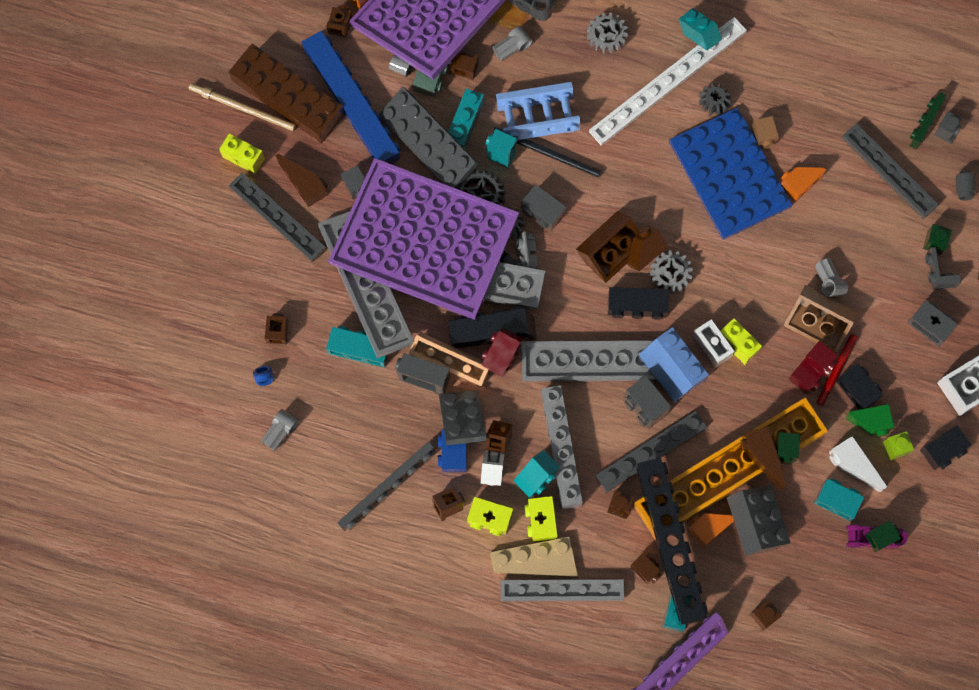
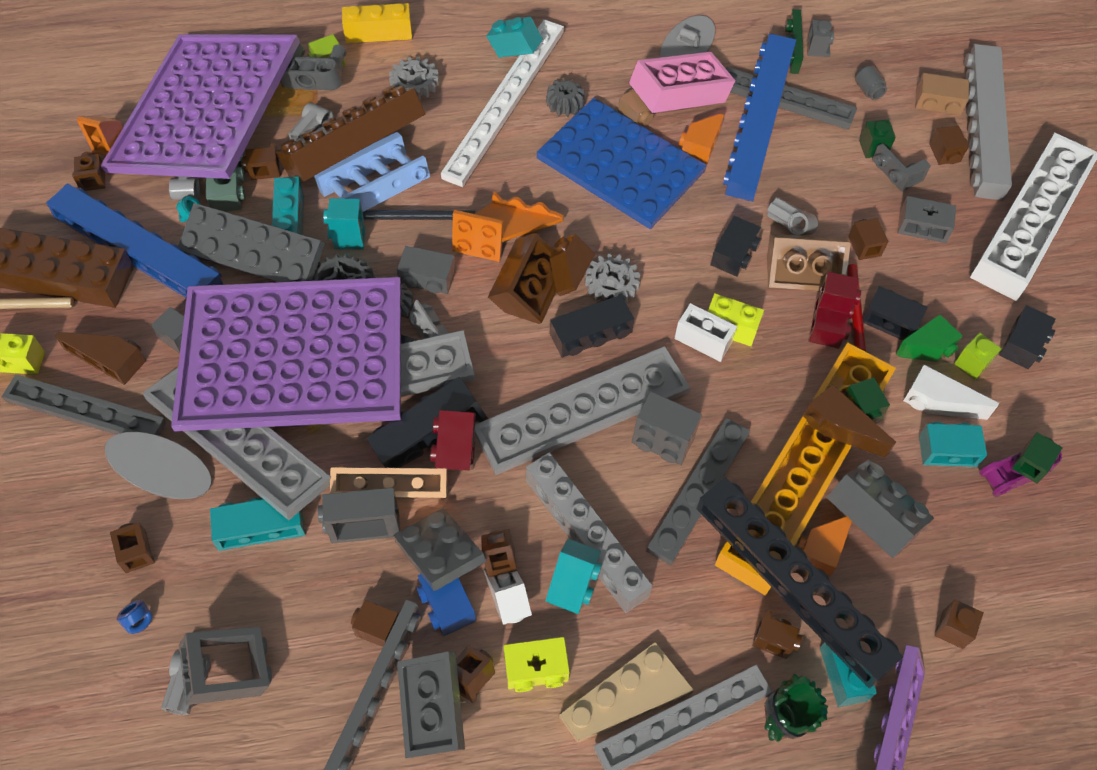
camera: 30 degrees left, 15 degrees down
(287, 426) = (193, 672): none -> dark grey window
(310, 280) = (157, 465): none -> light grey shield
(396, 83) = (184, 207): none -> teal tile
(403, 445) = (373, 622): none -> reddish brown brick
(415, 512) = (430, 705): none -> dark grey plate
(537, 69) = (350, 133): none -> reddish brown brick
(544, 507) = (606, 619): neon yellow brick -> none
(612, 192) = (499, 221): none -> orange piece
(620, 504) = (699, 568): reddish brown brick -> none
(630, 616) = (794, 709): none -> dark green hair
(673, 365) = (674, 370): medium blue slope -> none
(775, 283) = (735, 246): none -> black brick
(808, 127) = (681, 81): none -> bright pink brick
(841, 83) = (689, 37): none -> light grey shield
(855, 182) = (760, 118): none -> blue brick
(877, 319) = (868, 238): none -> reddish brown brick

